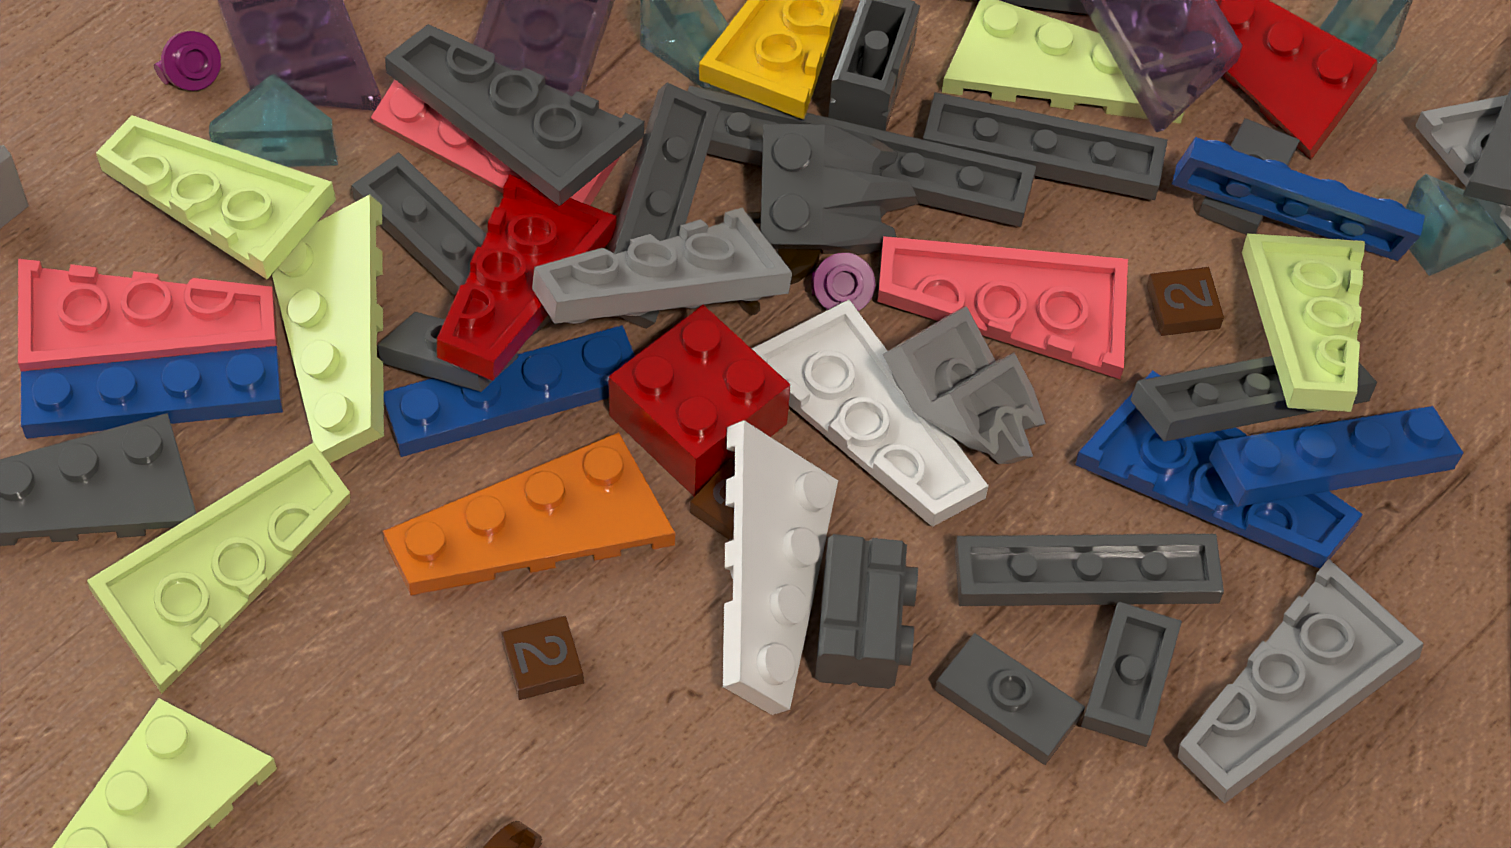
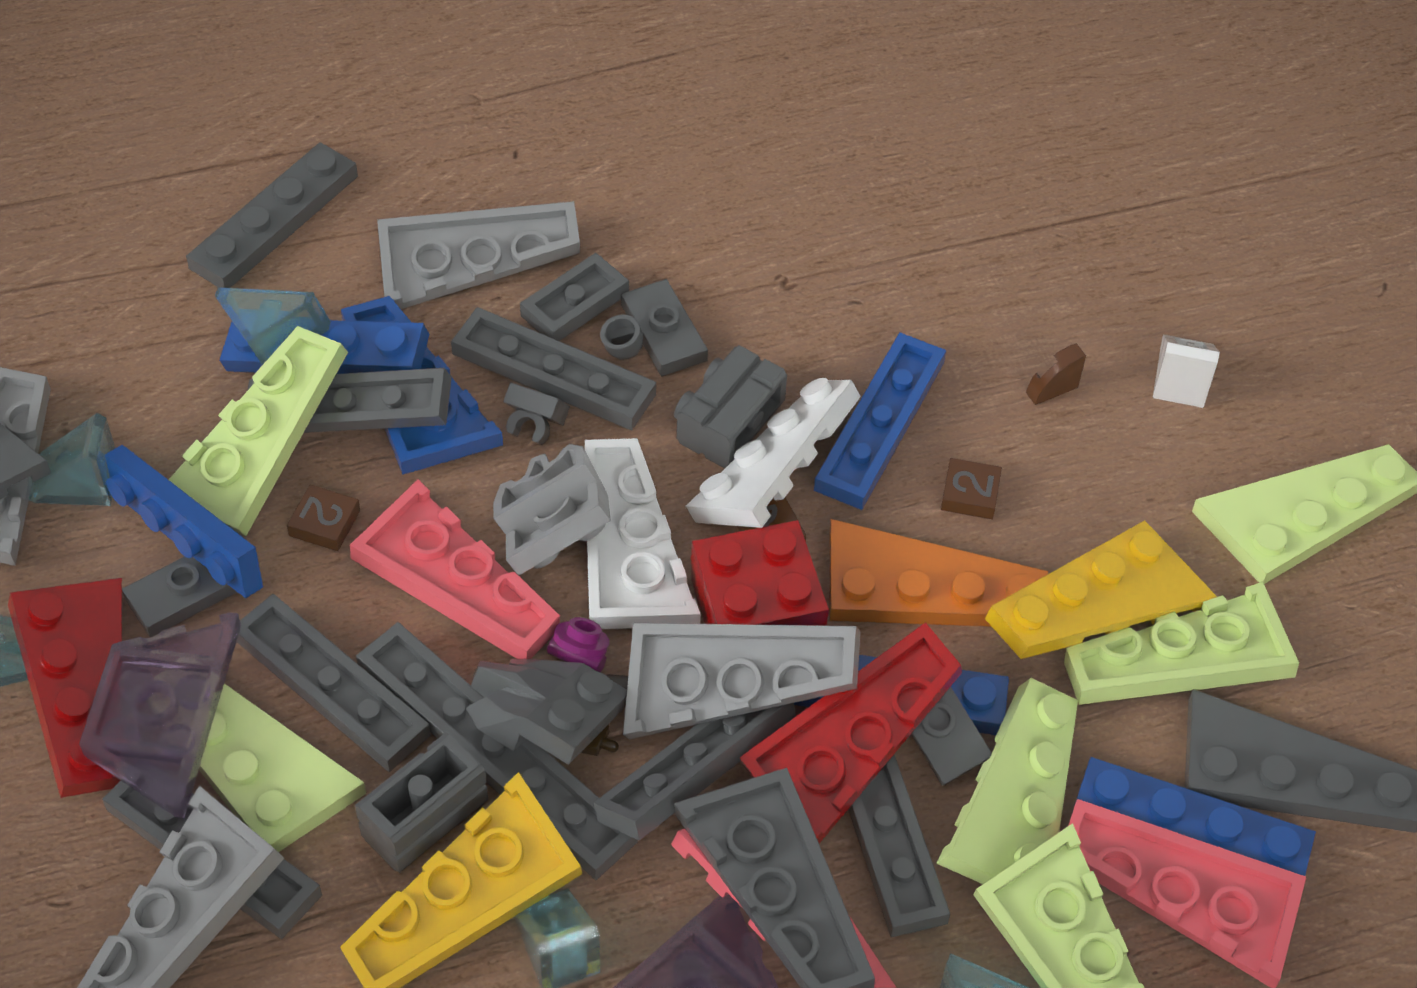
camera: 150 degrees left, 5 degrees down
(328, 580) = (1099, 592): none -> yellow wing
(687, 689) = (879, 421): none -> blue plate
(1033, 635) = (622, 336): none -> dark grey hinge
(1070, 504) = (536, 407): none -> dark grey tile
(1407, 409) = (270, 316): none -> clear light blue slope

